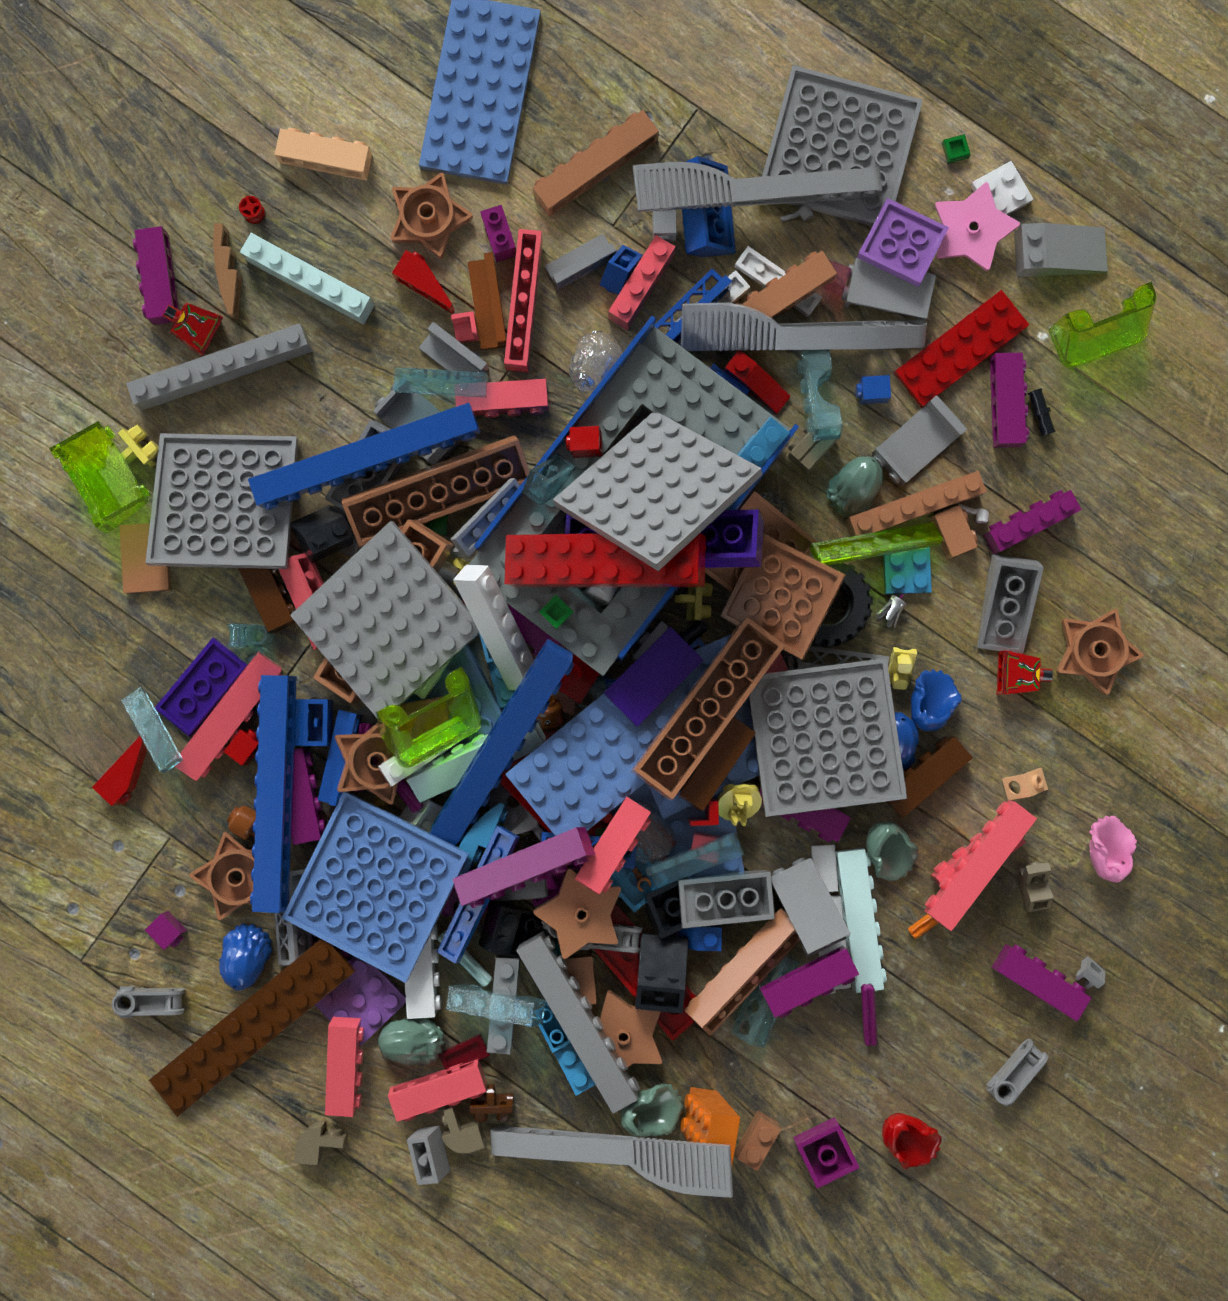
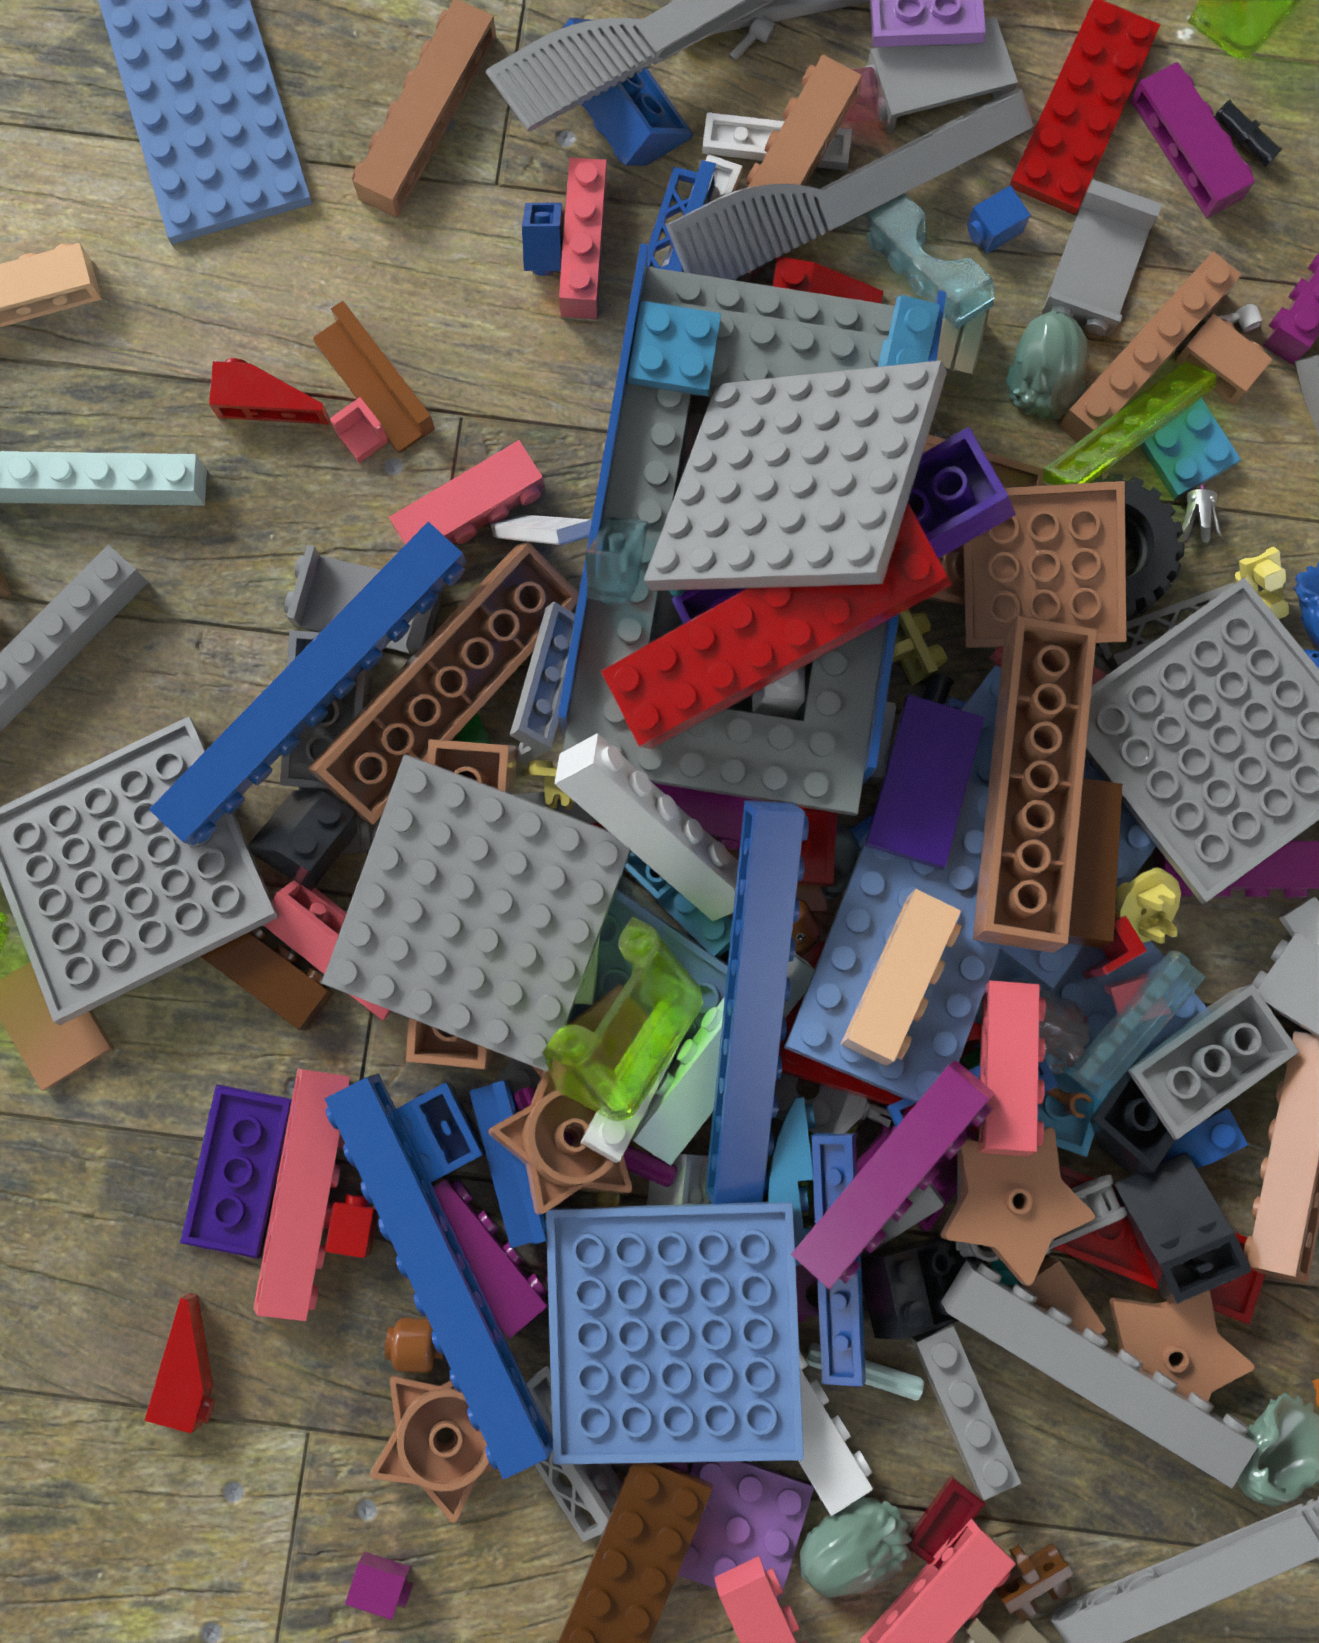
camera: 30 degrees left, 5 degrees down
(152, 730) = (195, 1279): clear light blue plate -> none
(244, 956) = (523, 1558): blue piece -> none
(245, 635) = (264, 1056): clear light blue piece -> none
(420, 201) = (218, 300): nougat plate -> none
(440, 382) = (365, 523): clear light blue fence -> none
(450, 352) = (362, 479): light grey panel -> none
(498, 233) = (337, 271): magenta brick -> none
(506, 1008) = (987, 1410): clear light blue arch -> none
(523, 300) = (426, 347): coral brick -> none
(528, 435) = (542, 529): none -> white tile
(556, 612) = (737, 751): green plate -> none
(565, 1053) = (1095, 1428): dark azure slope -> none
(580, 261) = (478, 255): light grey panel -> none
(580, 771) = (901, 978): none -> light nougat brick
(585, 441) = (642, 475): red brick -> none
(592, 360) = (575, 382): clear piece -> none
(640, 381) = (674, 348): none -> dark azure plate
(664, 224) = (569, 137): white brick -> none

